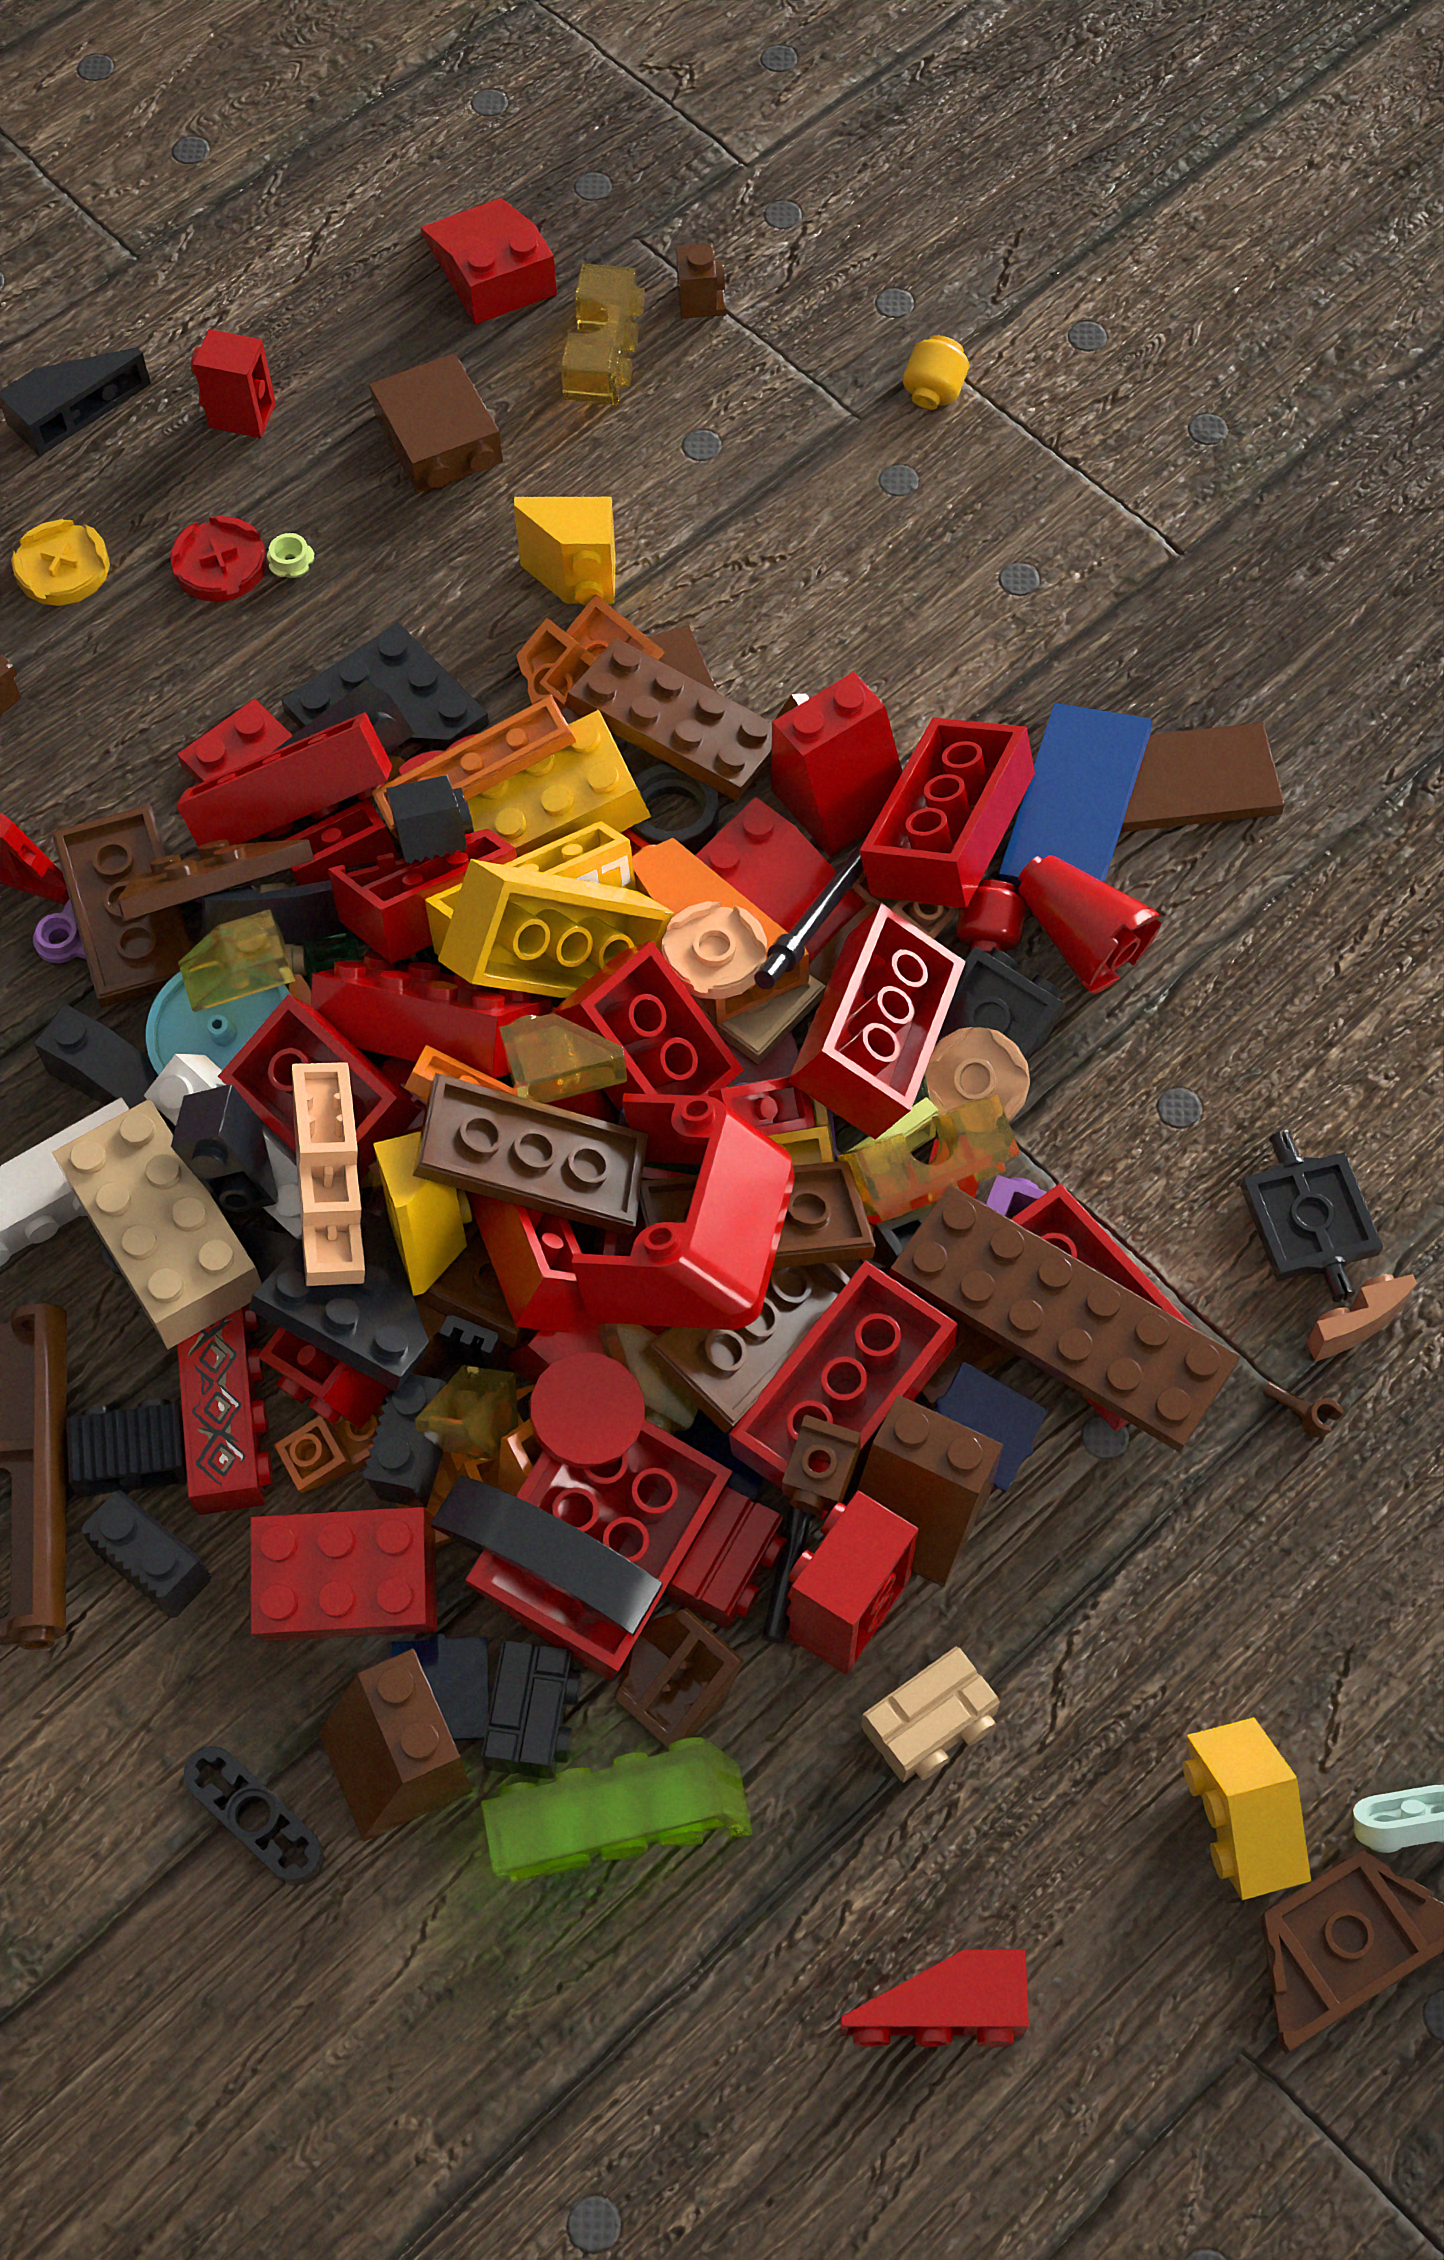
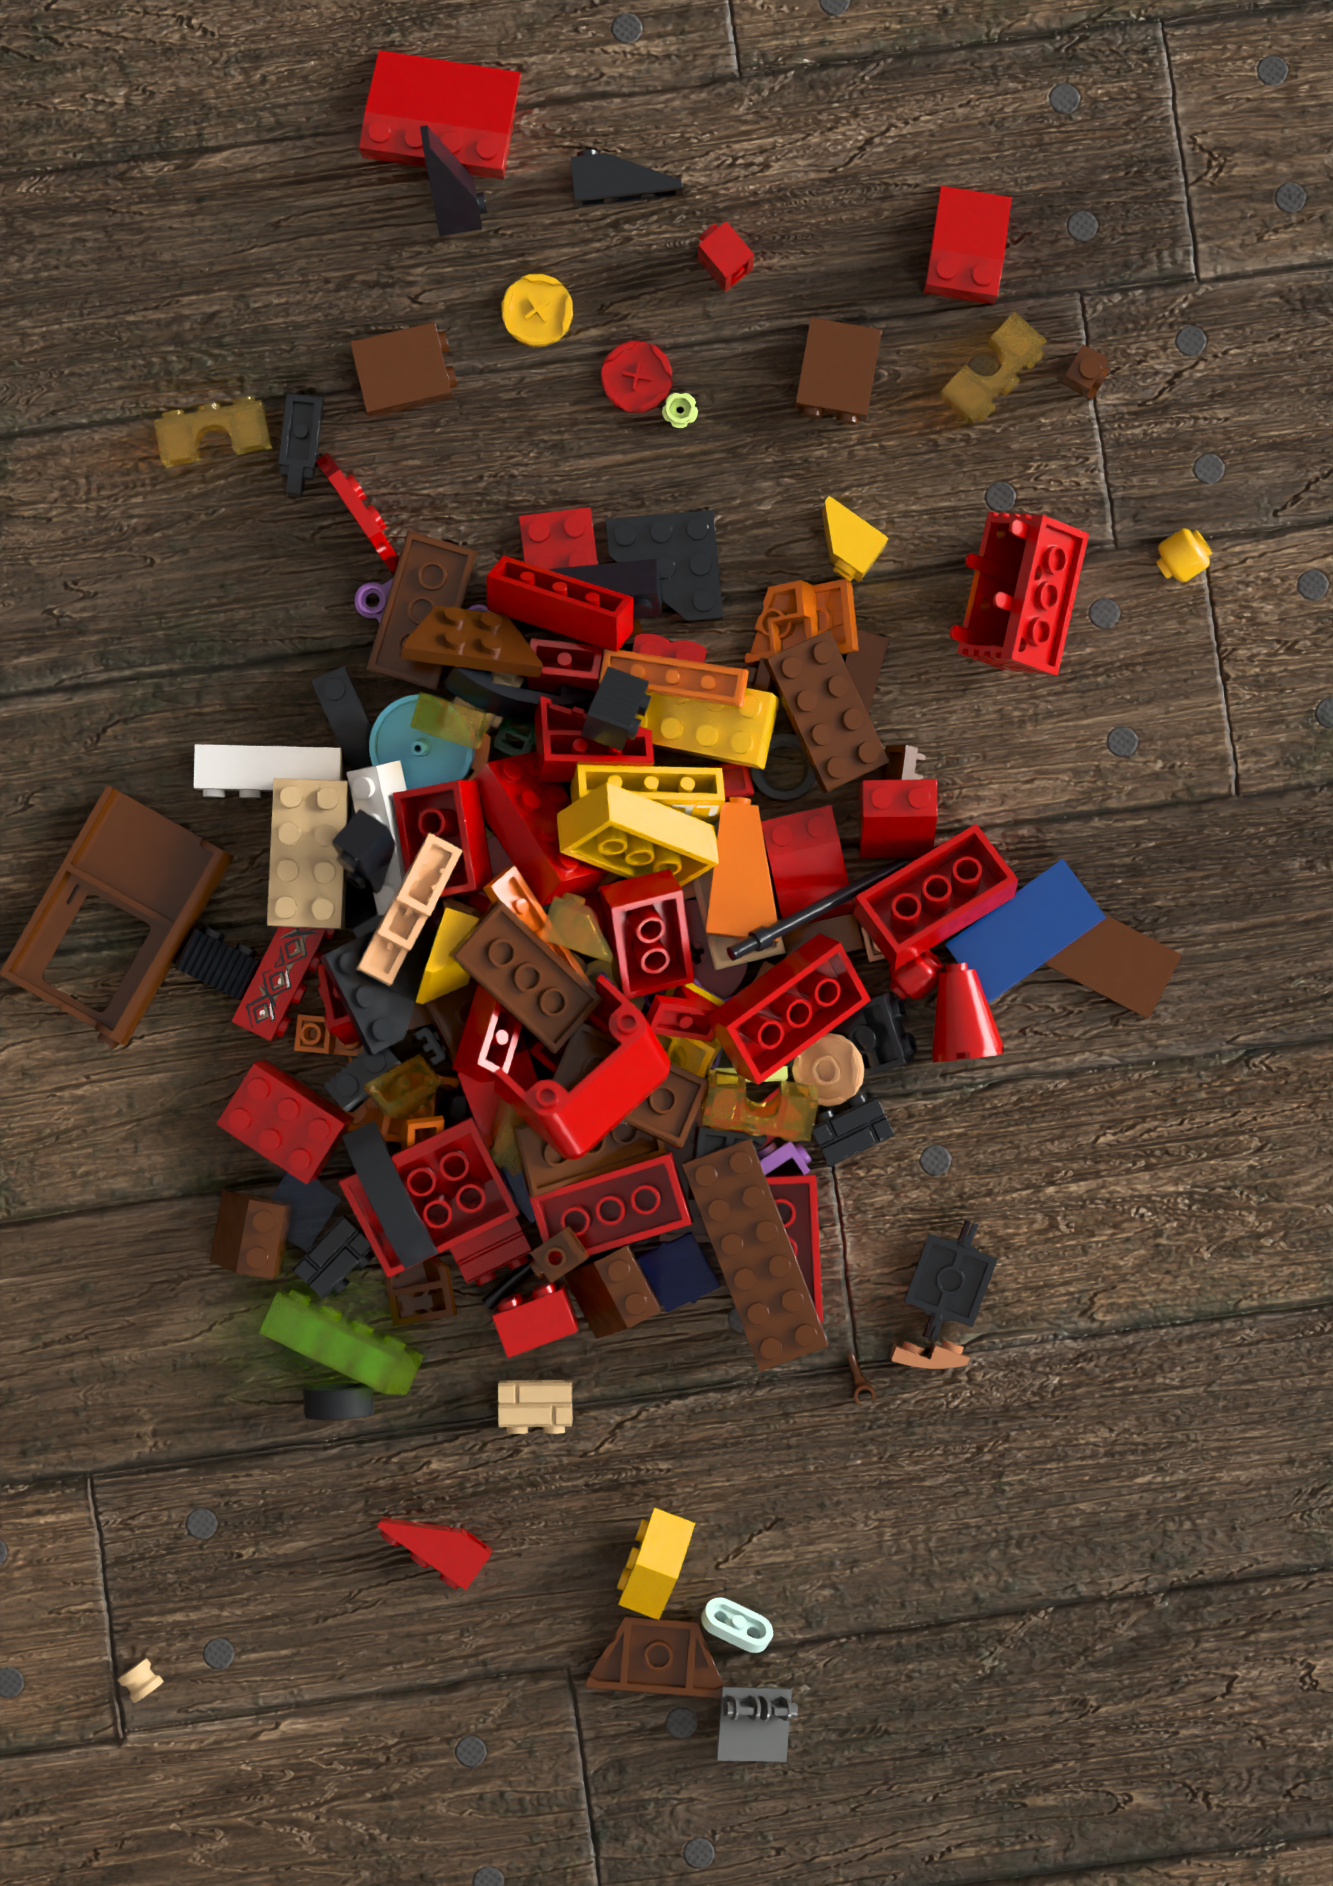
camera: 35 degrees right, 25 degrees up
(146, 1554) = (192, 1033): black brick -> none
(235, 1774) = (149, 1186): black beam -> none
(586, 1410) = (460, 1136): red tile -> none
(666, 1890) = (338, 1401): none -> black tyre
(717, 965) = (714, 906): light nougat tile -> none
(797, 478) = (1021, 593): none -> red piece
(1058, 1126) = (852, 1129): none -> black brick

